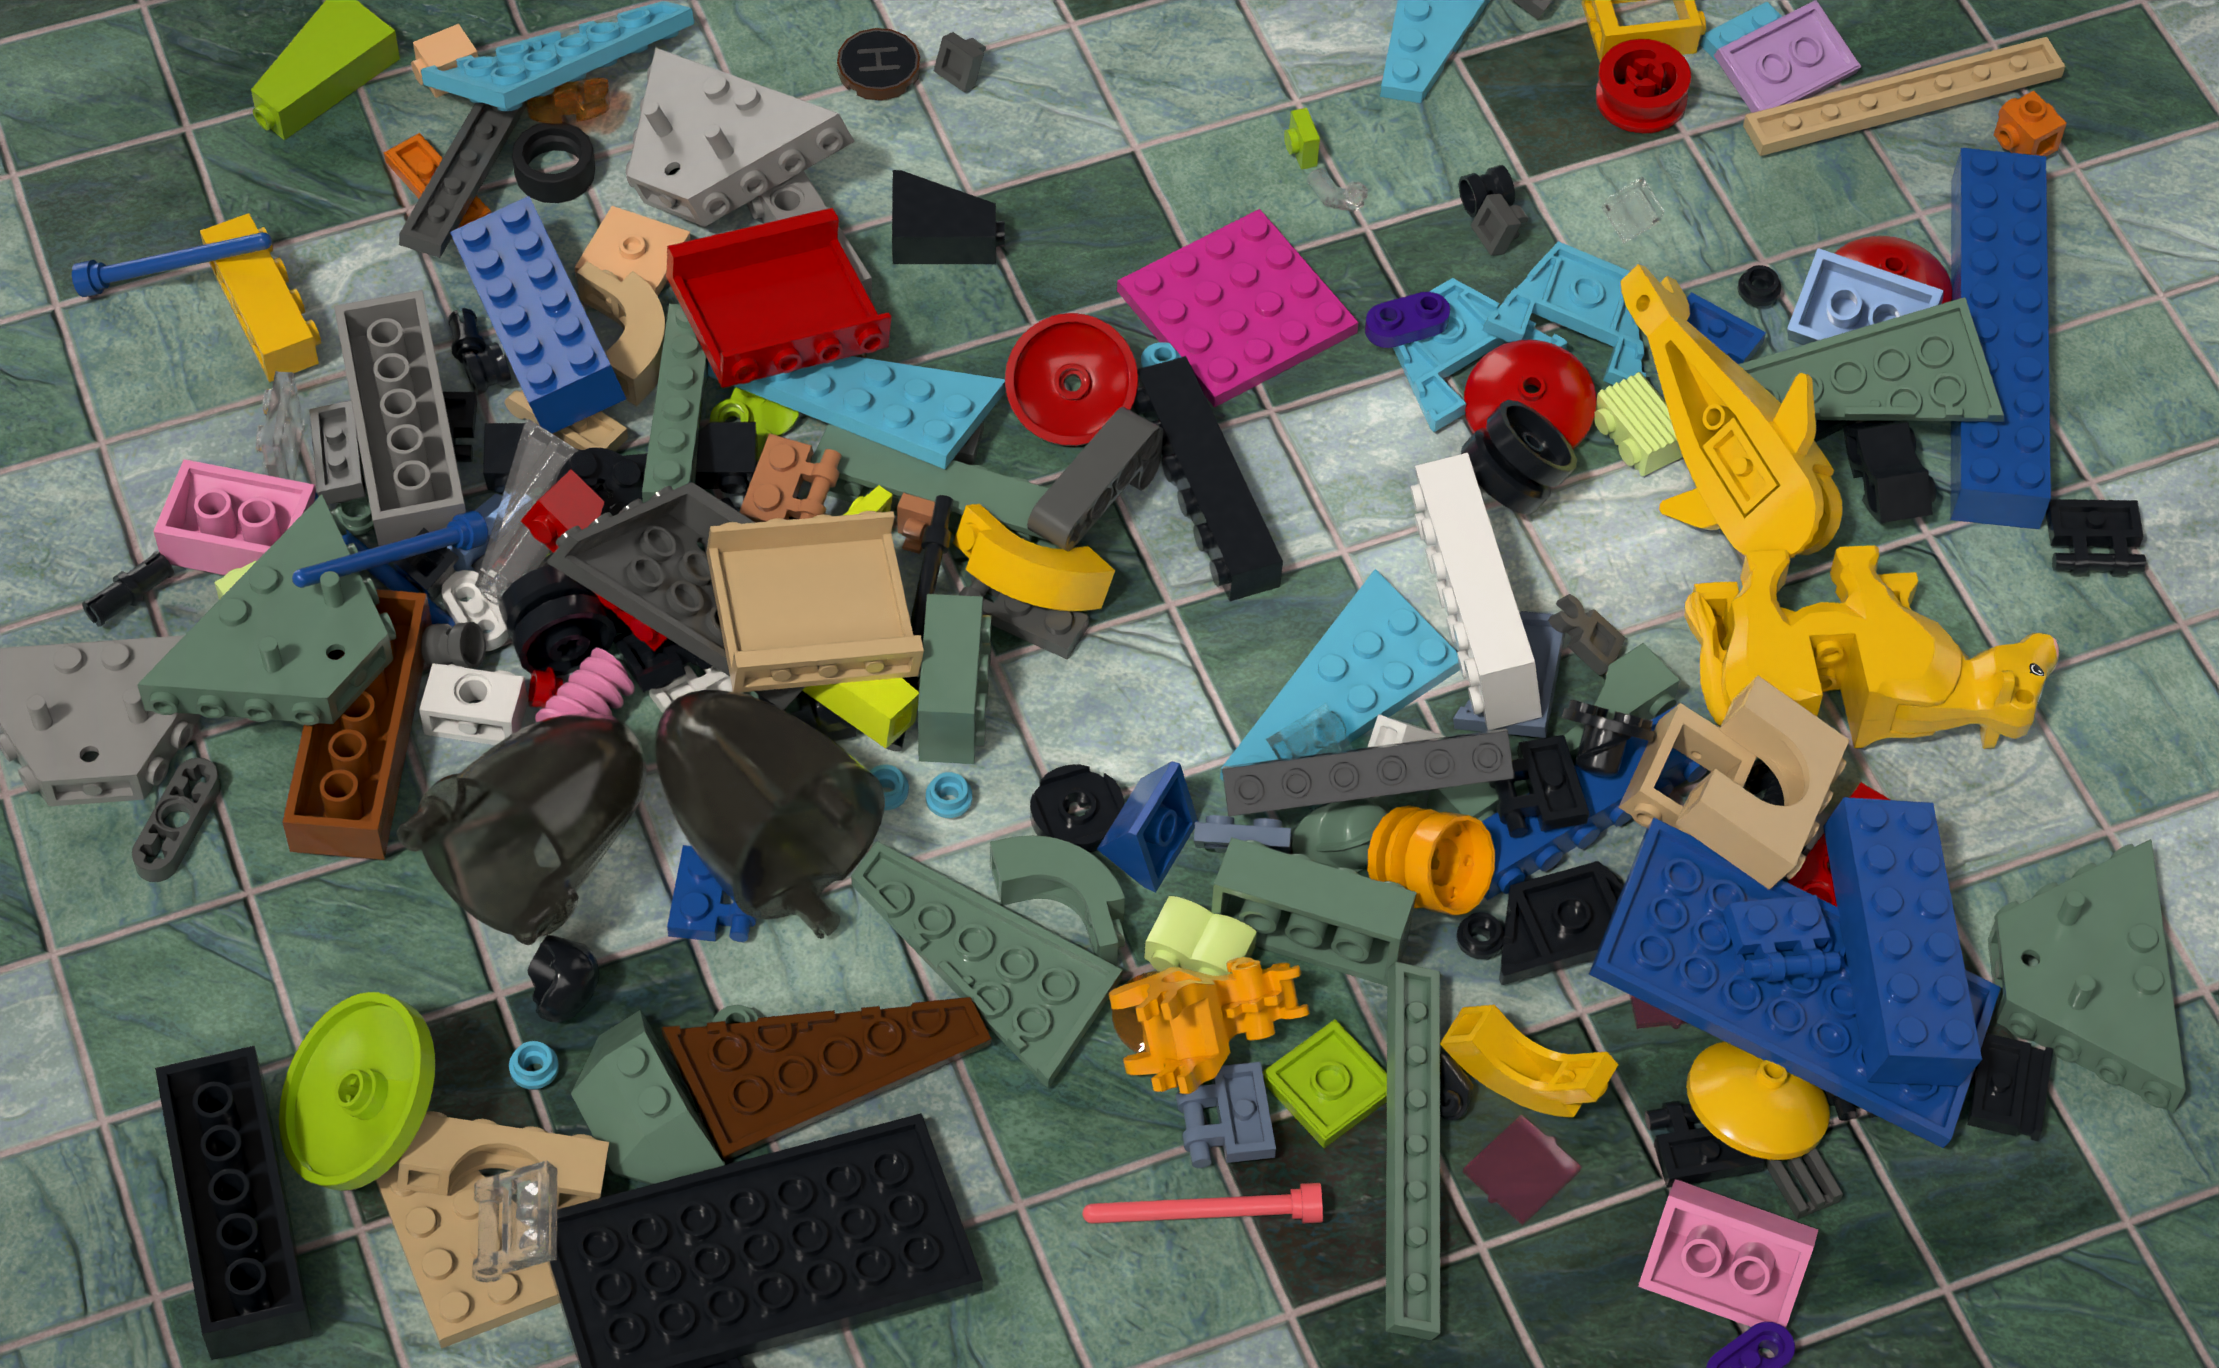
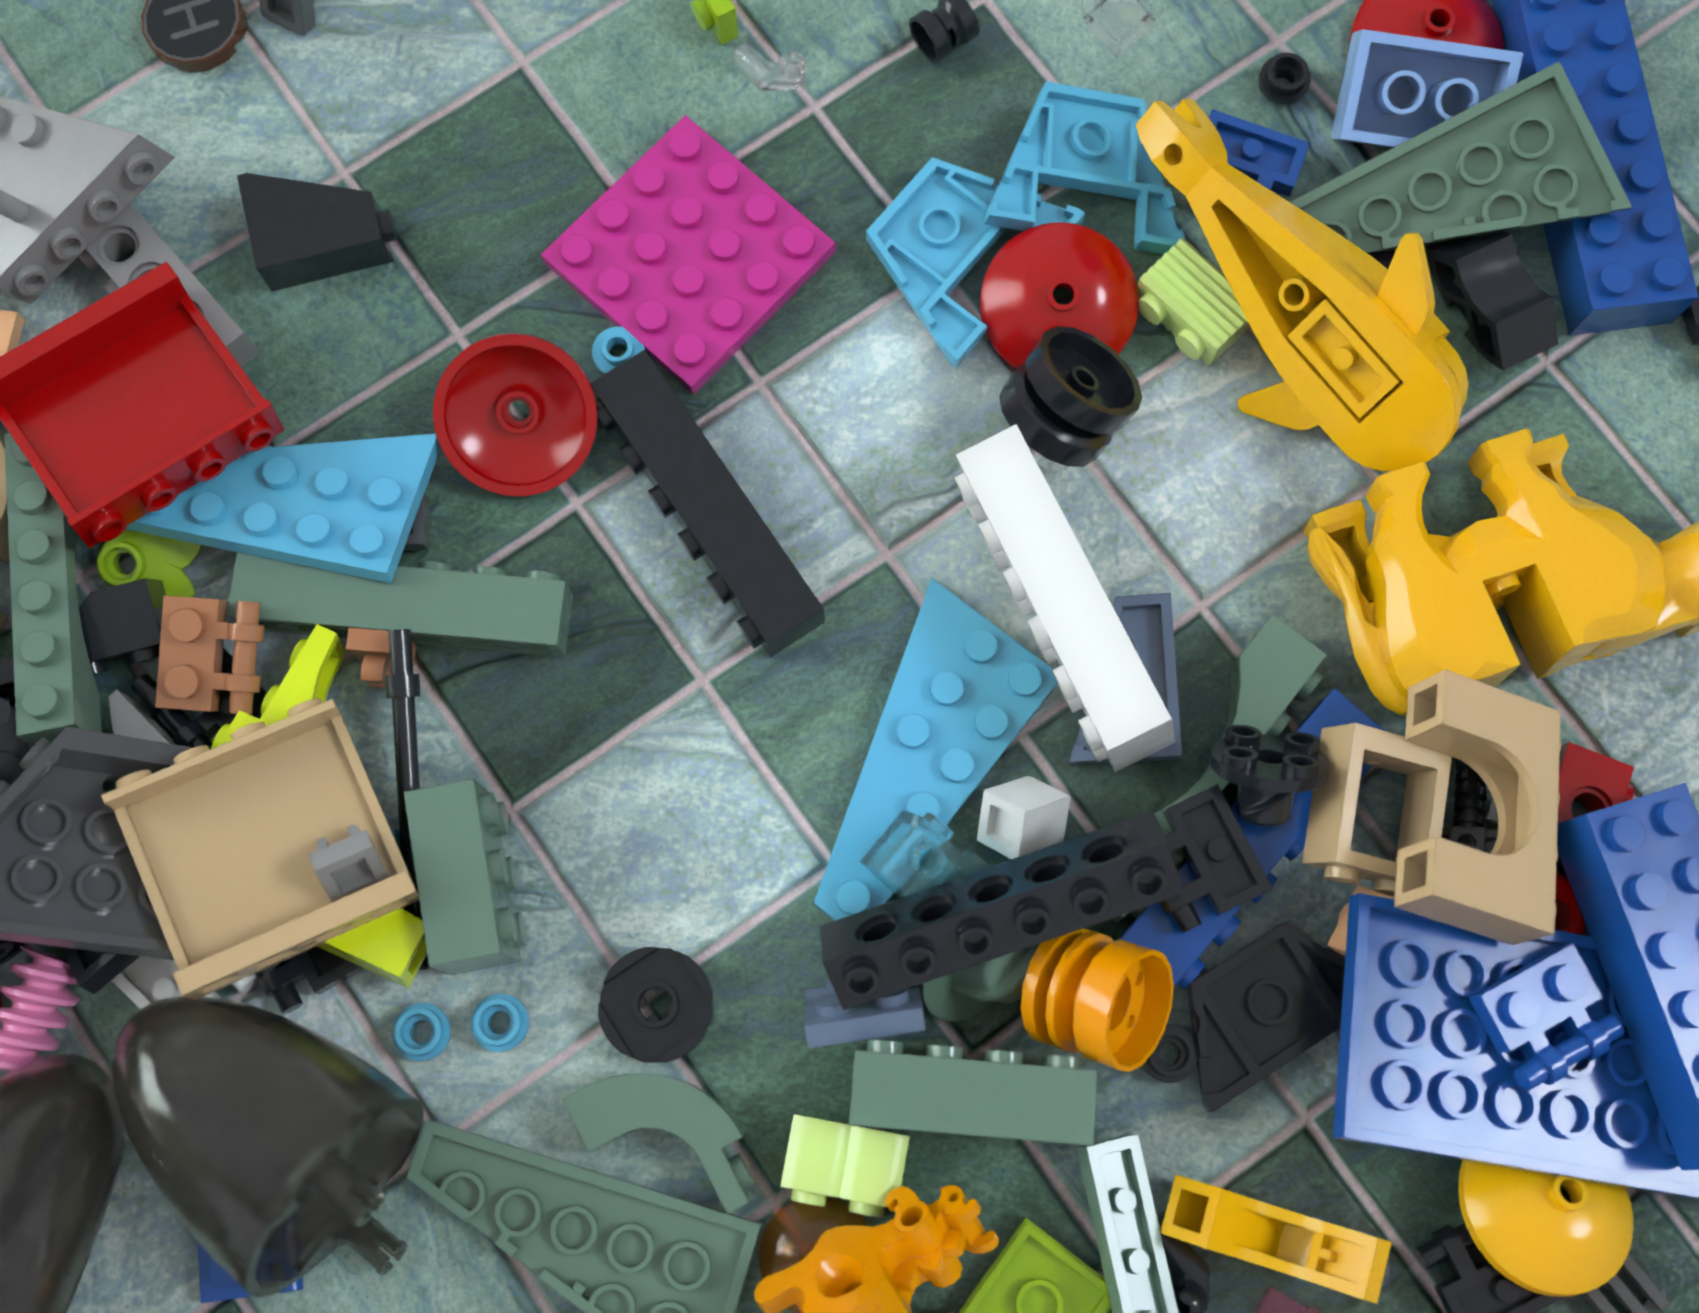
camera: 10 degrees left, 20 degrees up
(876, 620) = (347, 864): none -> light grey tile
(1030, 571) = (525, 704): yellow arch -> none
(1044, 627) = (532, 740): dark grey plate -> none
(1118, 455) = (560, 592): dark grey beam -> none
(1152, 826) = (748, 1016): blue slope -> none
(1409, 317) = (896, 228): dark purple plate -> none
(1498, 223) = (967, 69): dark grey tile -> none
(1592, 635) = (1207, 609): dark grey plate -> none

